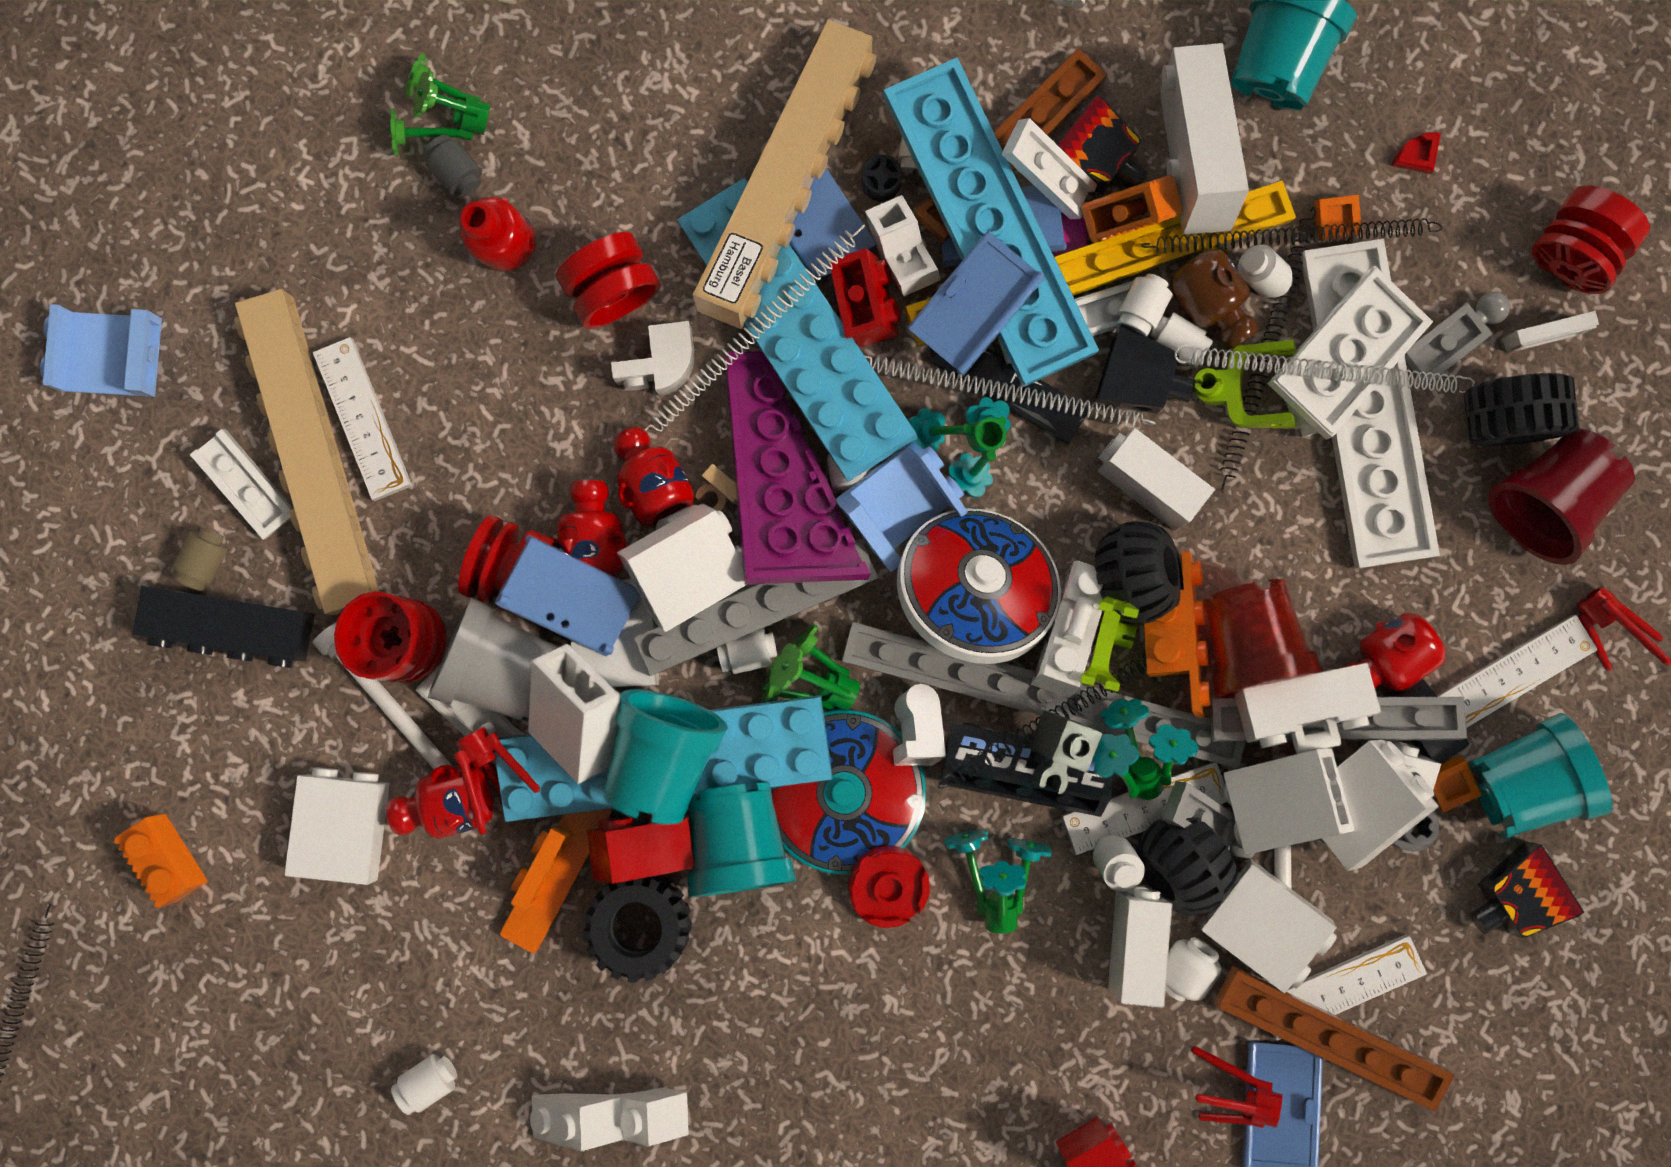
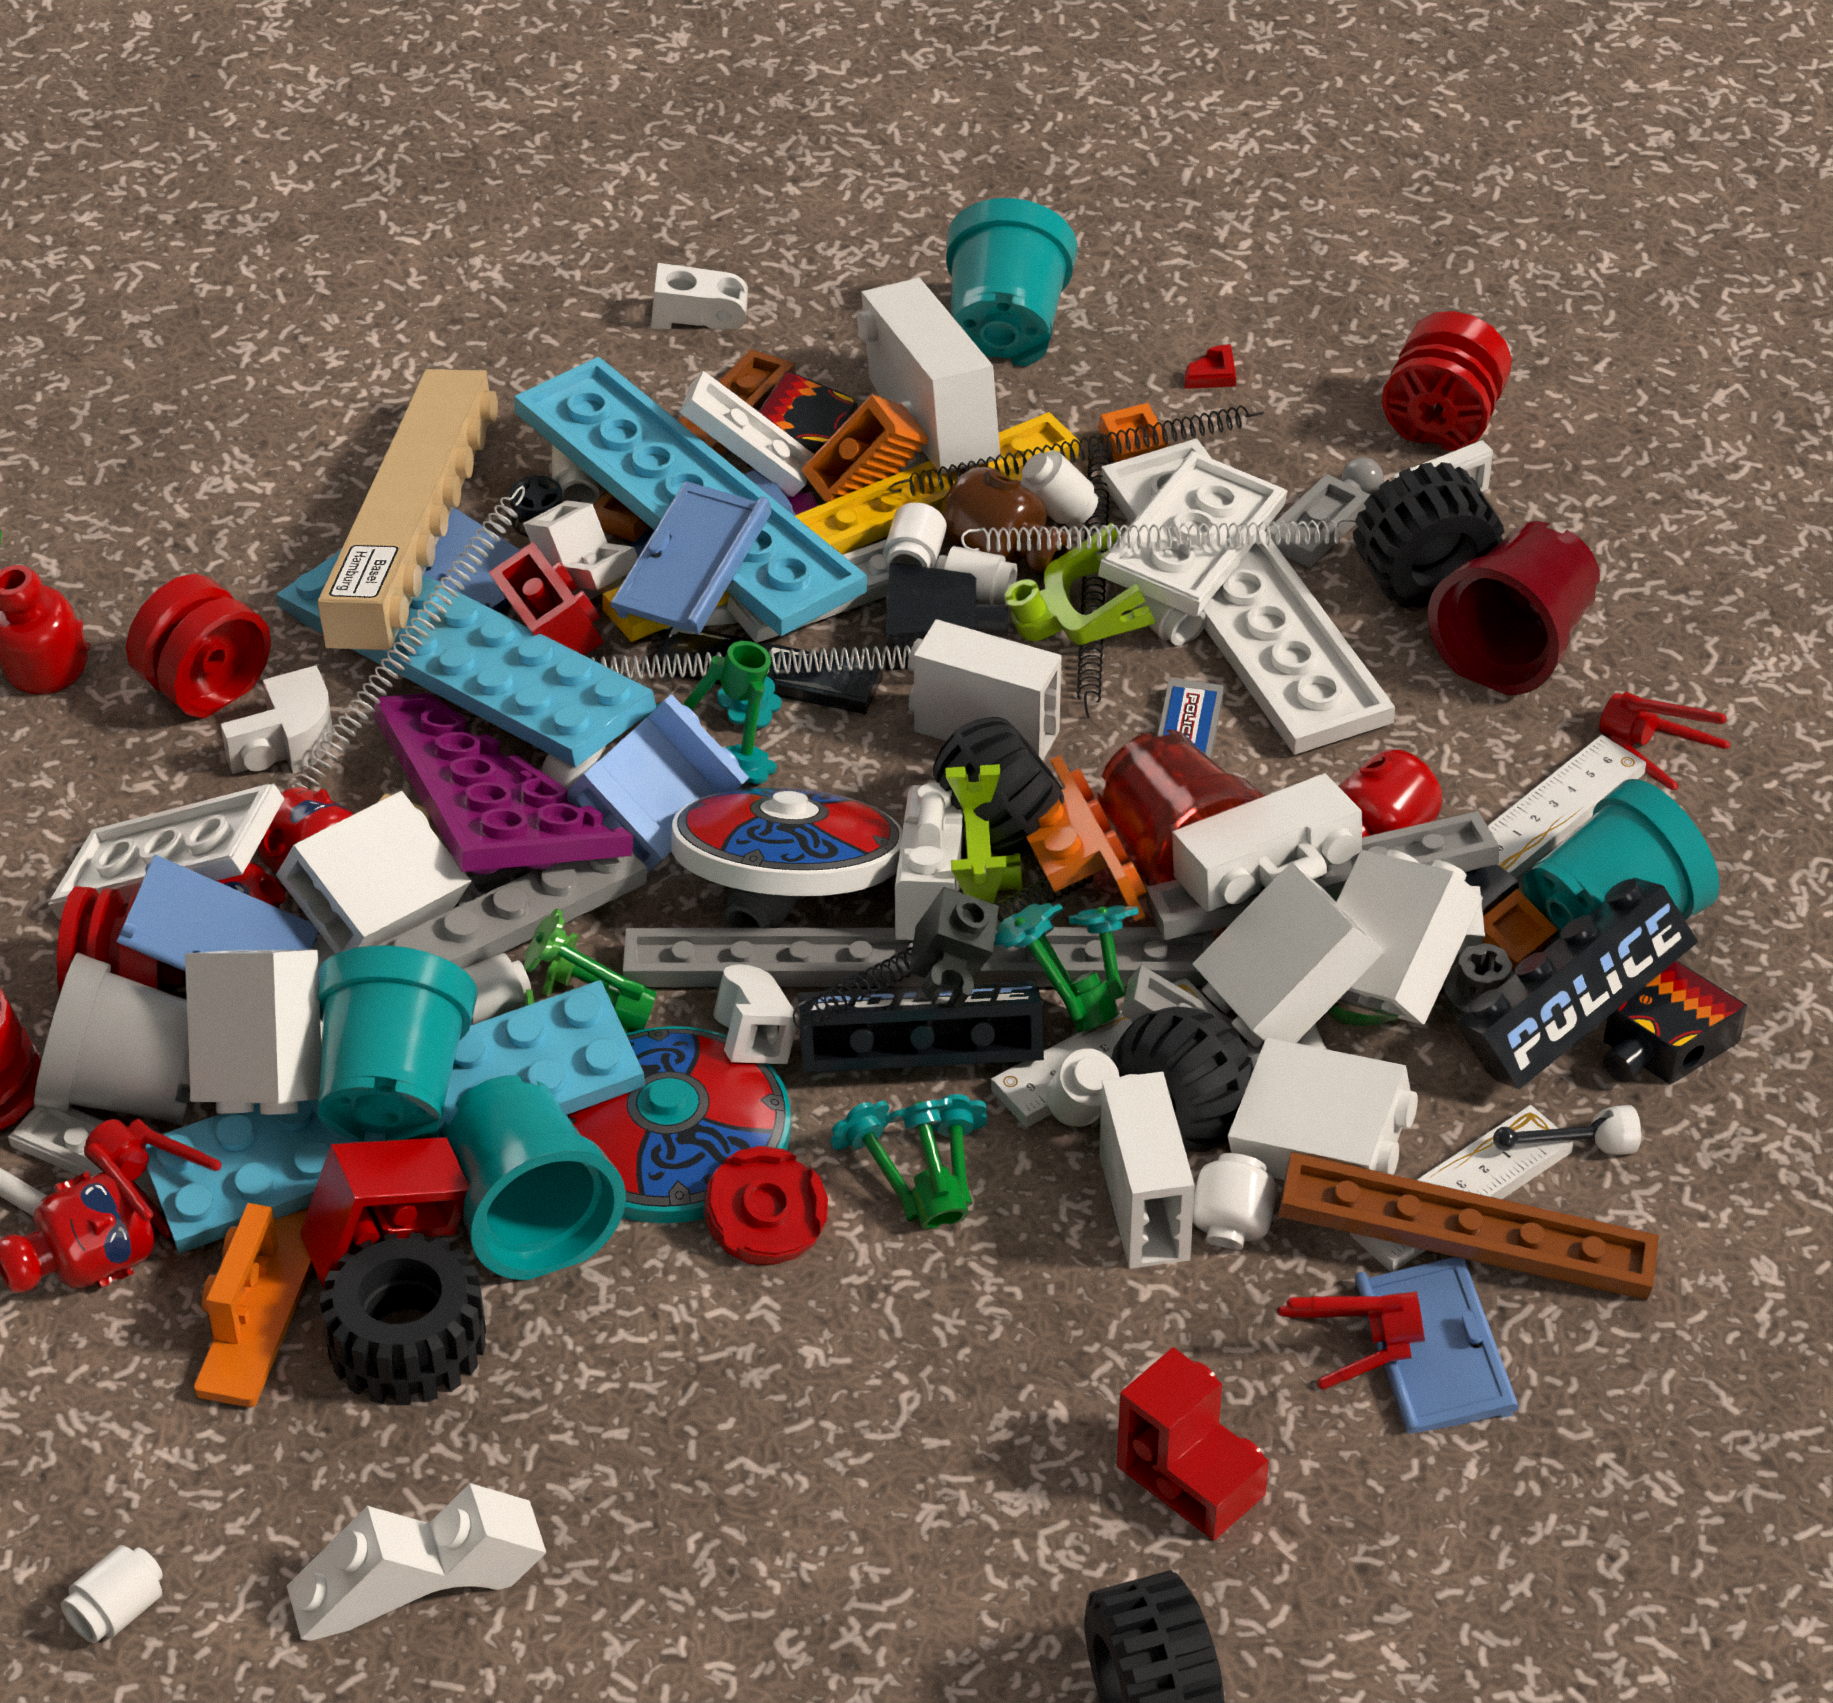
camera: 15 degrees left, 40 degrees down
(553, 486) = (205, 836): none -> white tile
(1289, 522) = (1194, 711): none -> tile
(1455, 972) = (1613, 1130): none -> hinge
(1478, 872) = (1576, 981): none -> black brick

